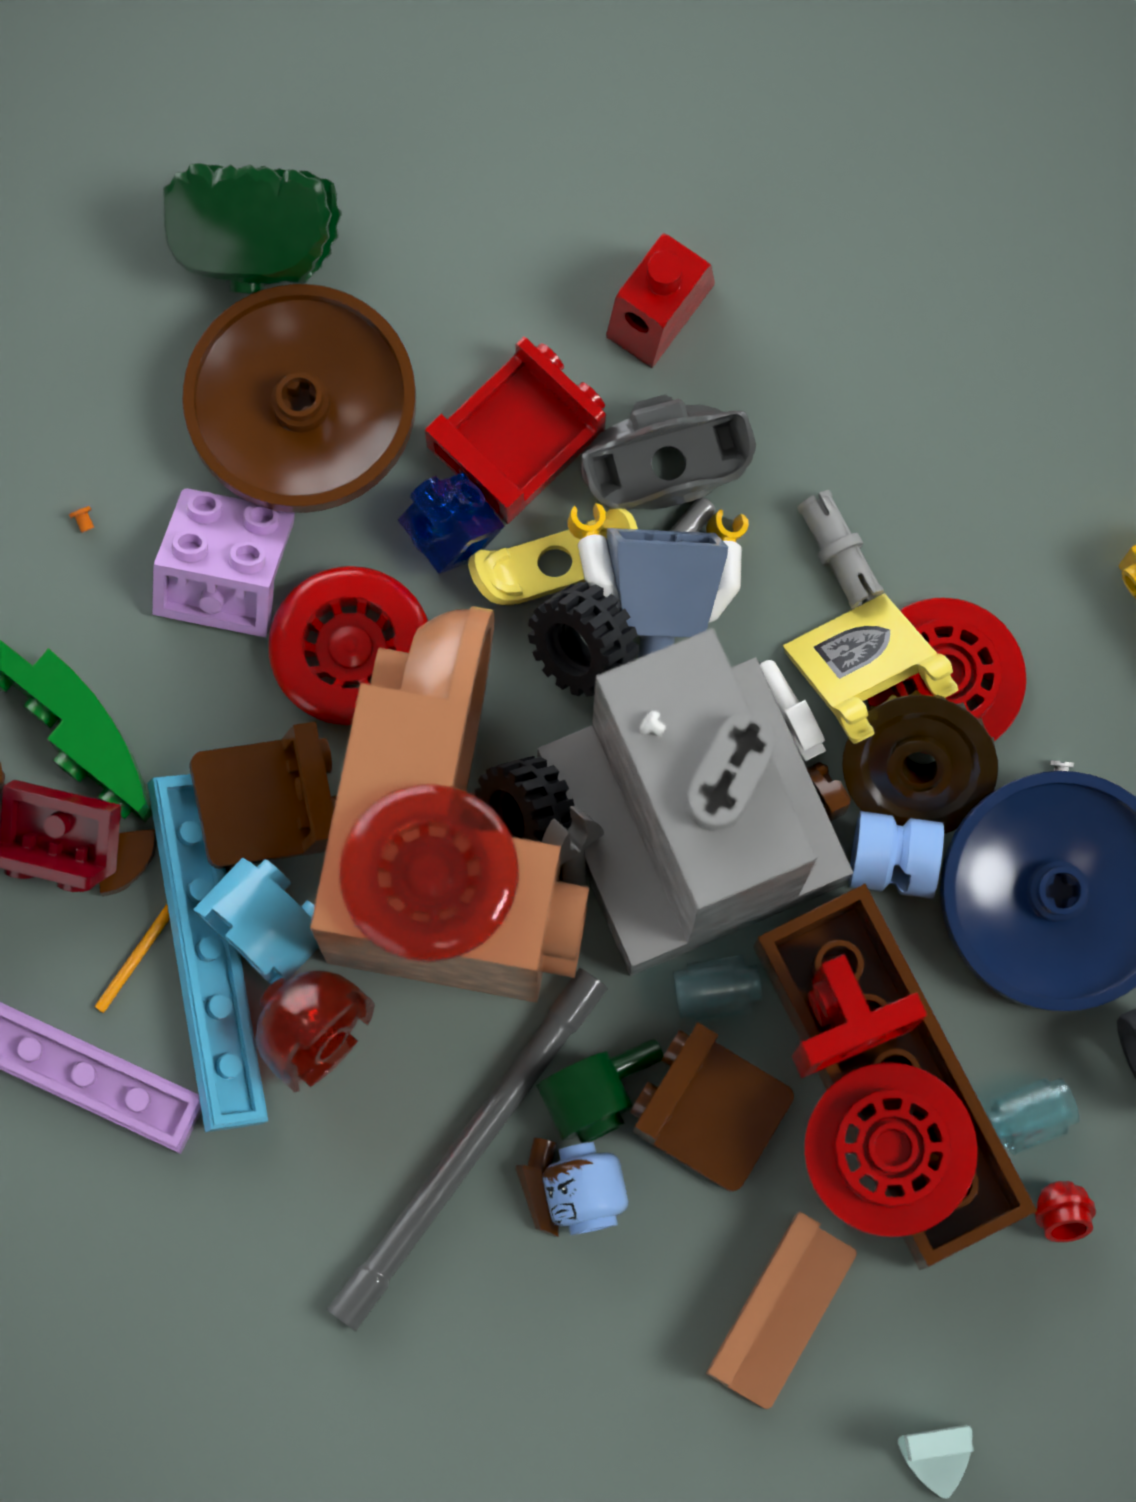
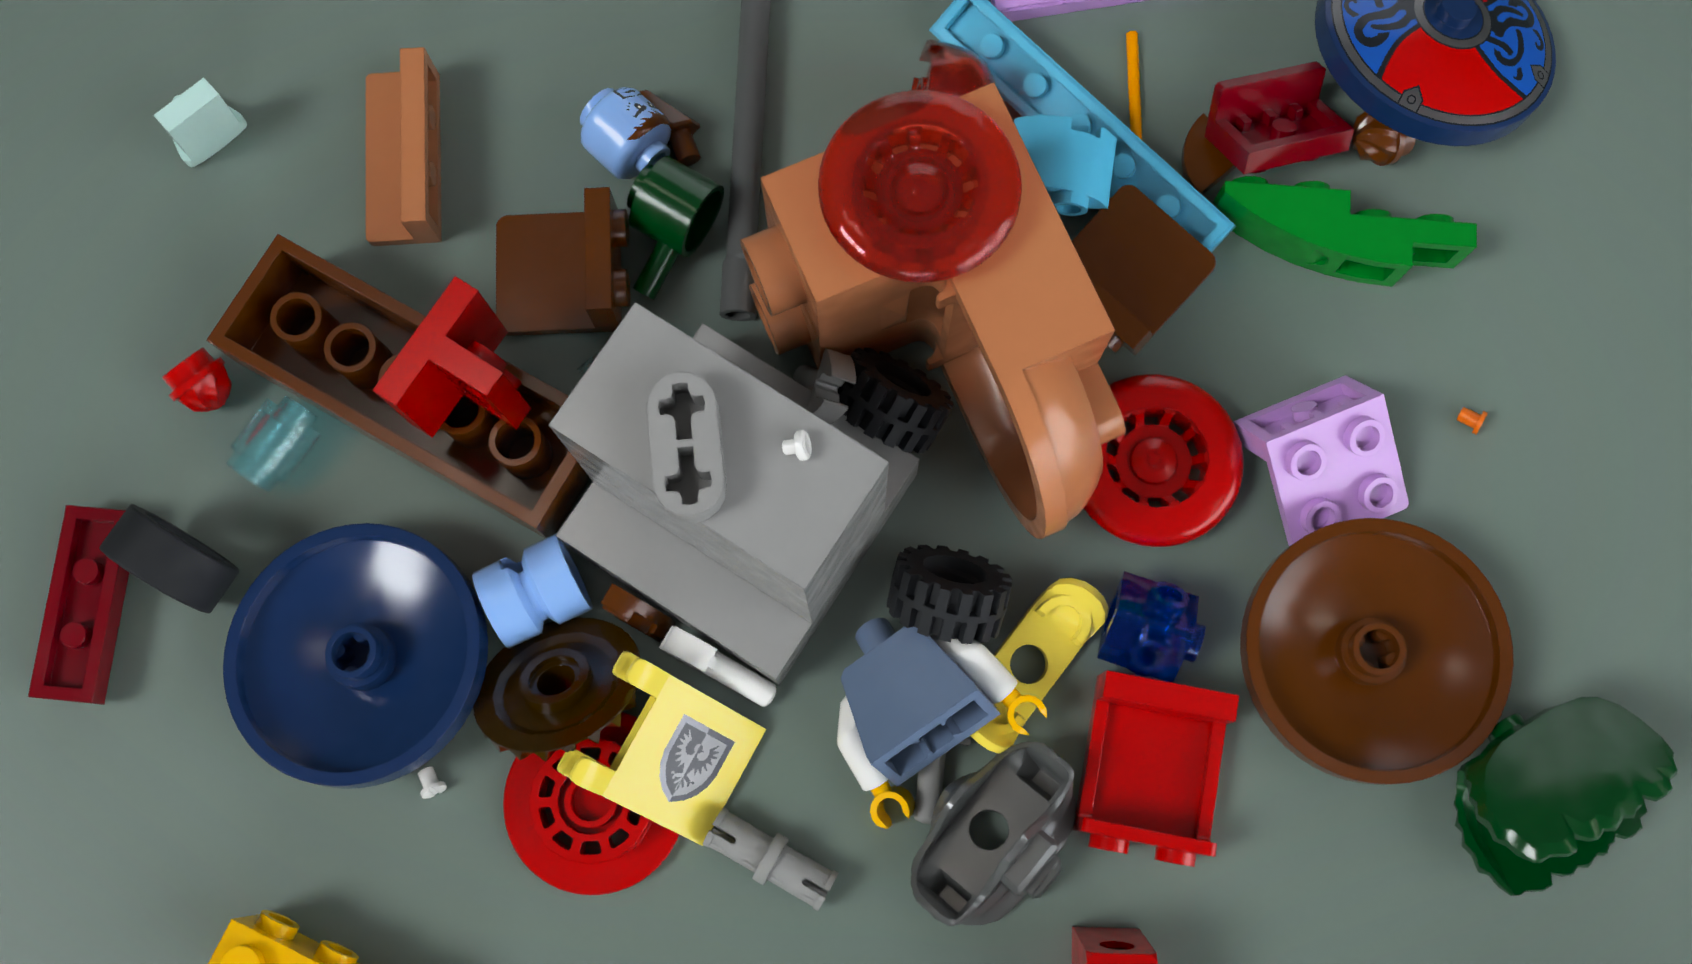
camera: 150 degrees right, 0 degrees up
(891, 1149) = (358, 296): red wheel -> none

